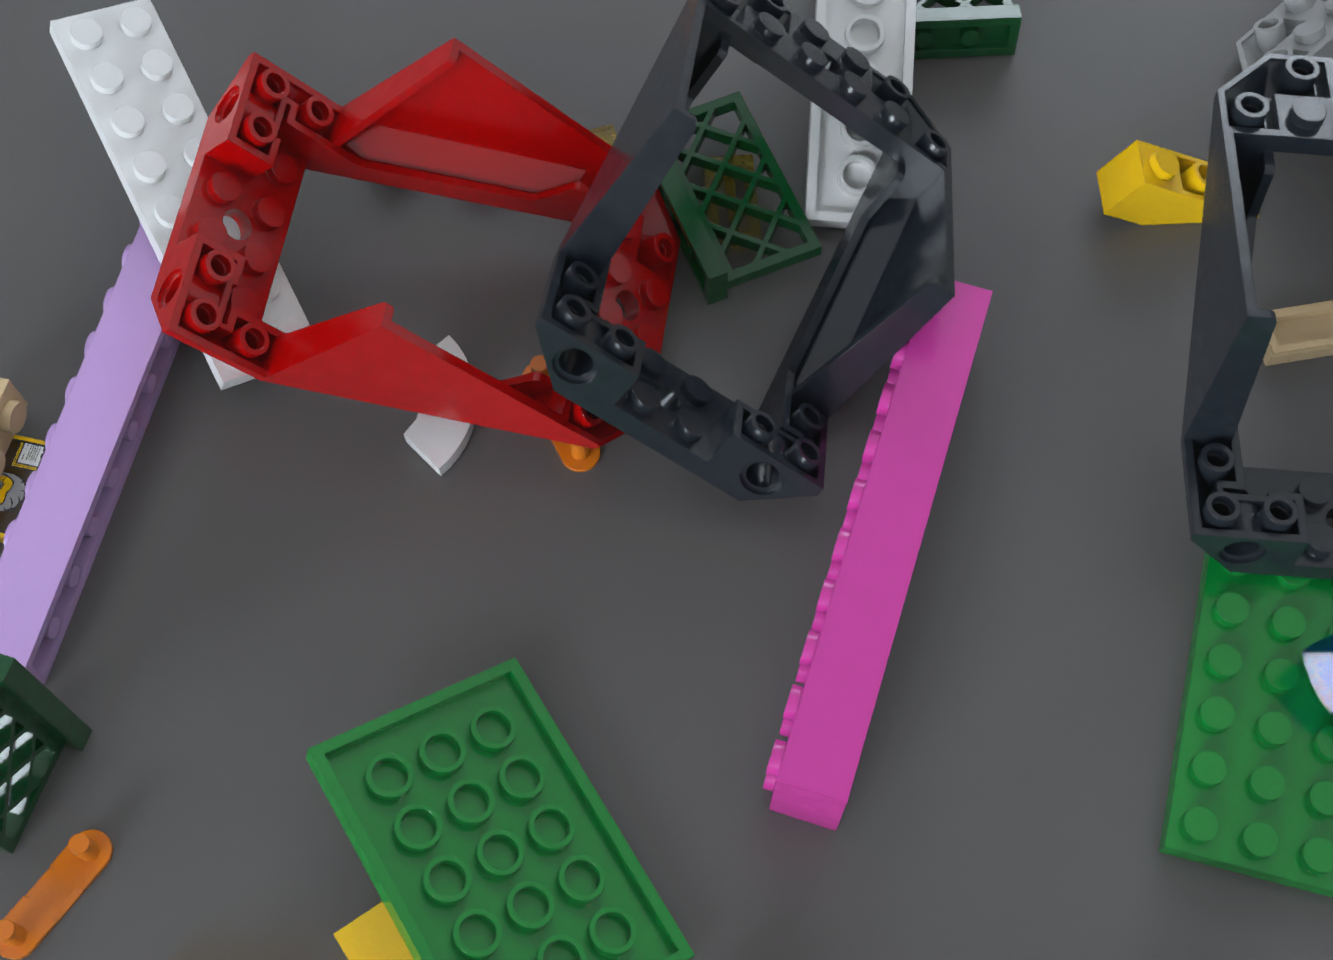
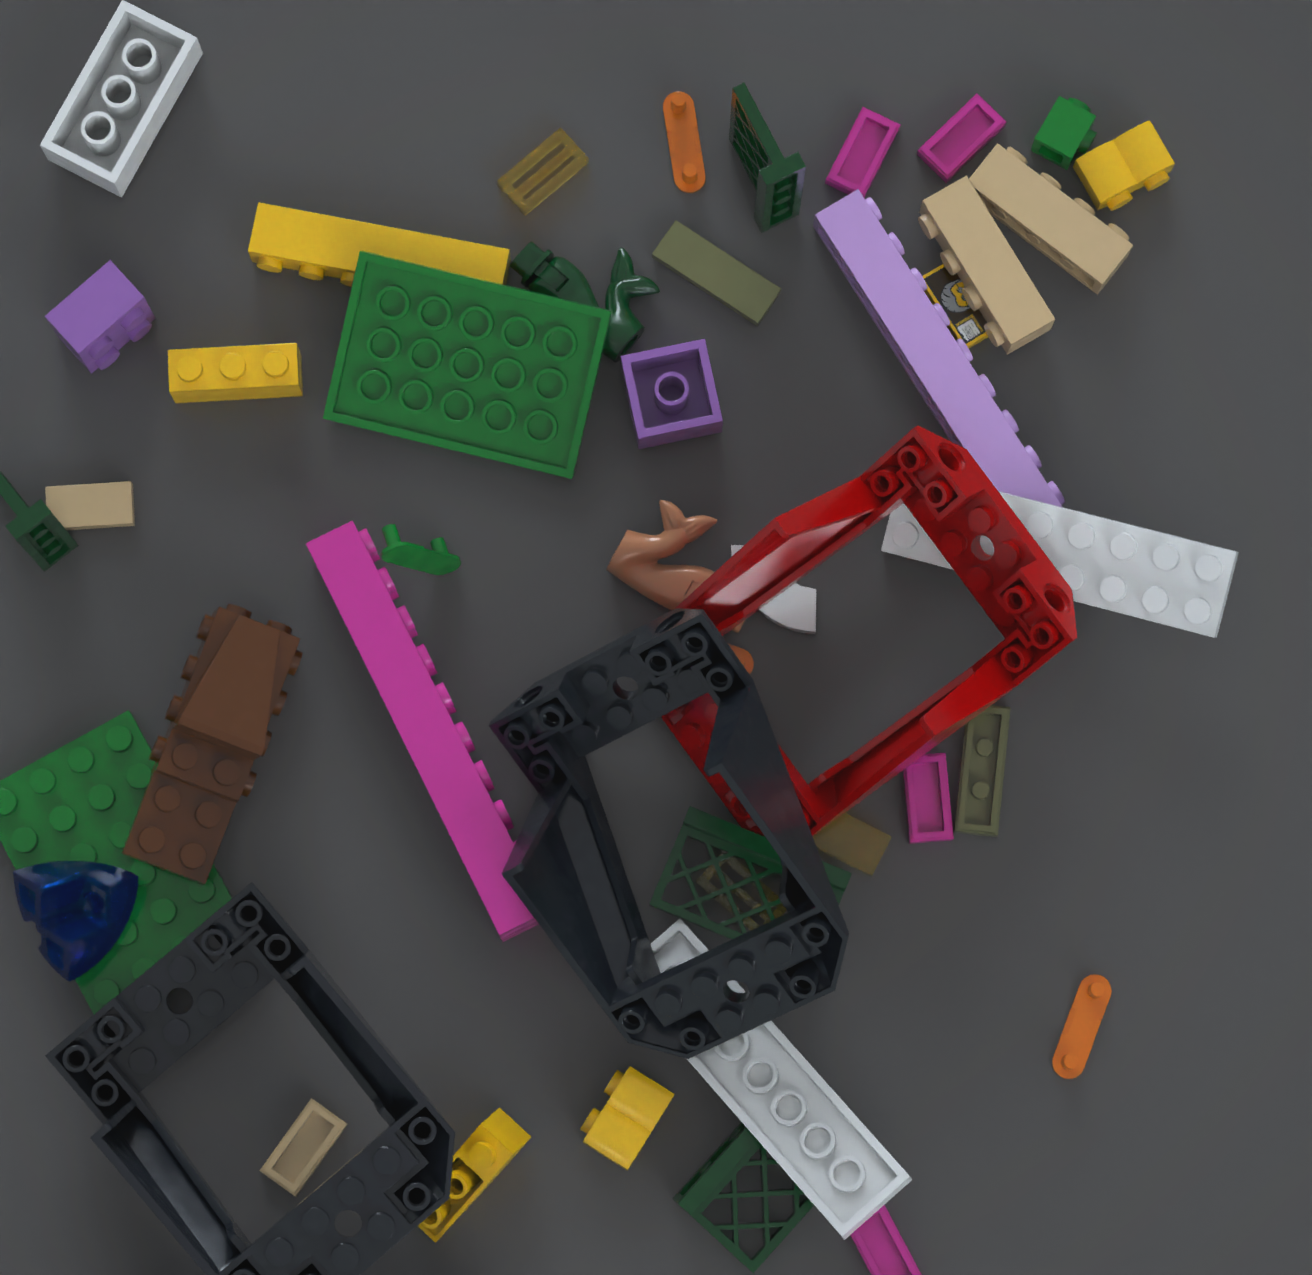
camera: 135 degrees right, 15 degrees up
(174, 729) = (716, 273): none -> olive tile
(322, 857) = (564, 280): none -> dark green piece
(340, 638) = (671, 393): none -> medium lavender brick
(529, 518) = (638, 555): none -> nougat piece
(753, 723) = (416, 557): none -> green piece
(999, 120) = (627, 1117): none -> yellow brick
(1103, 724) = (212, 741): none -> reddish brown wedge

